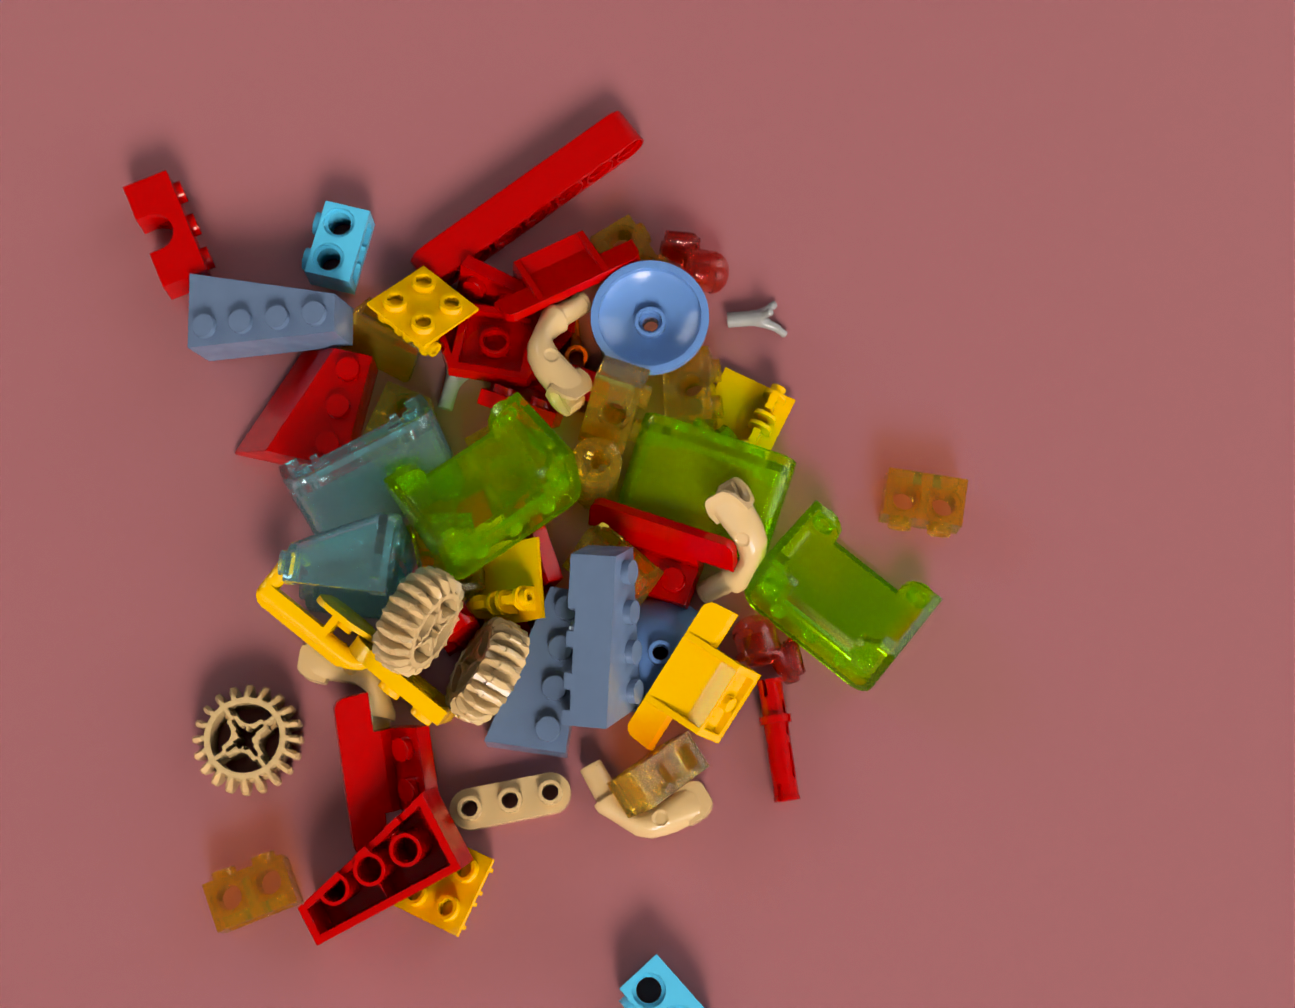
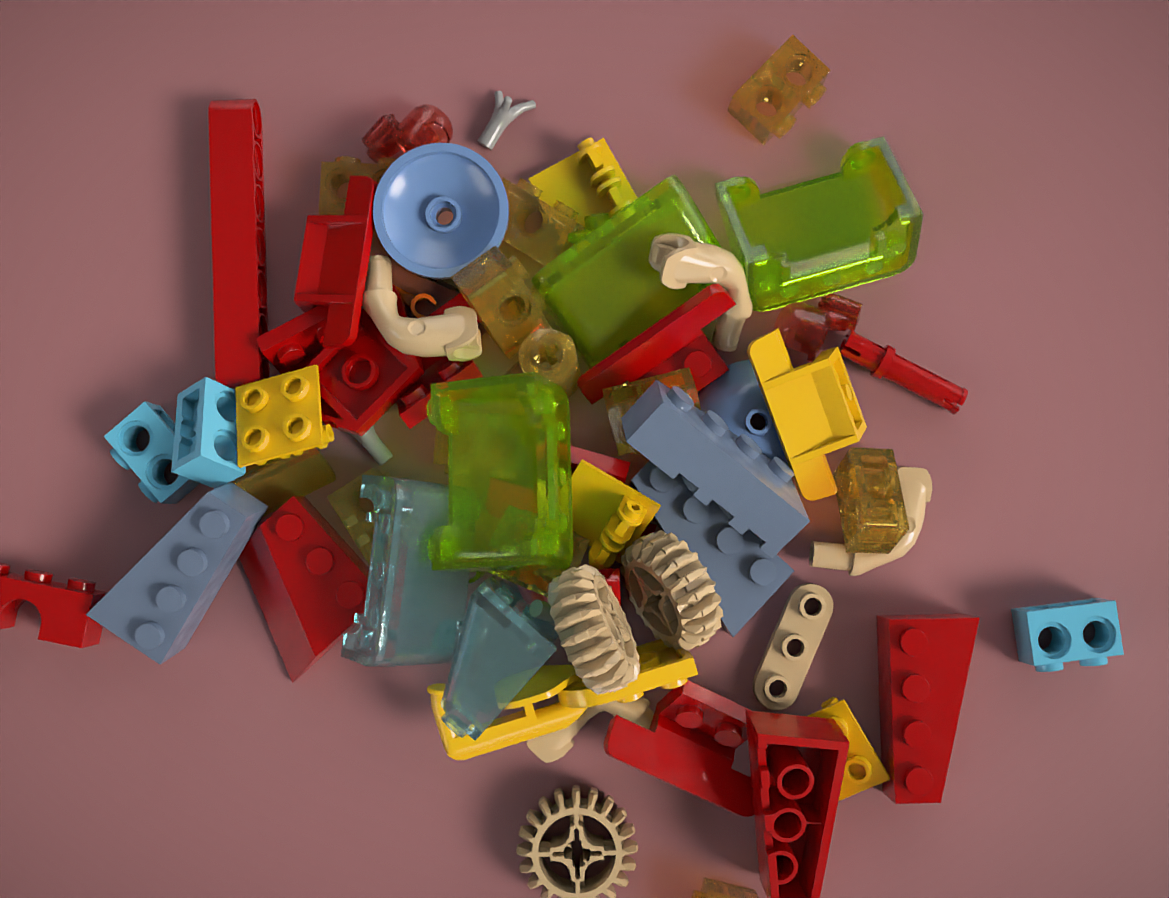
camera: 50 degrees left, 10 degrees up
(375, 268) = (206, 434): none -> medium azure brick
(541, 917) = (920, 699): none -> red wedge

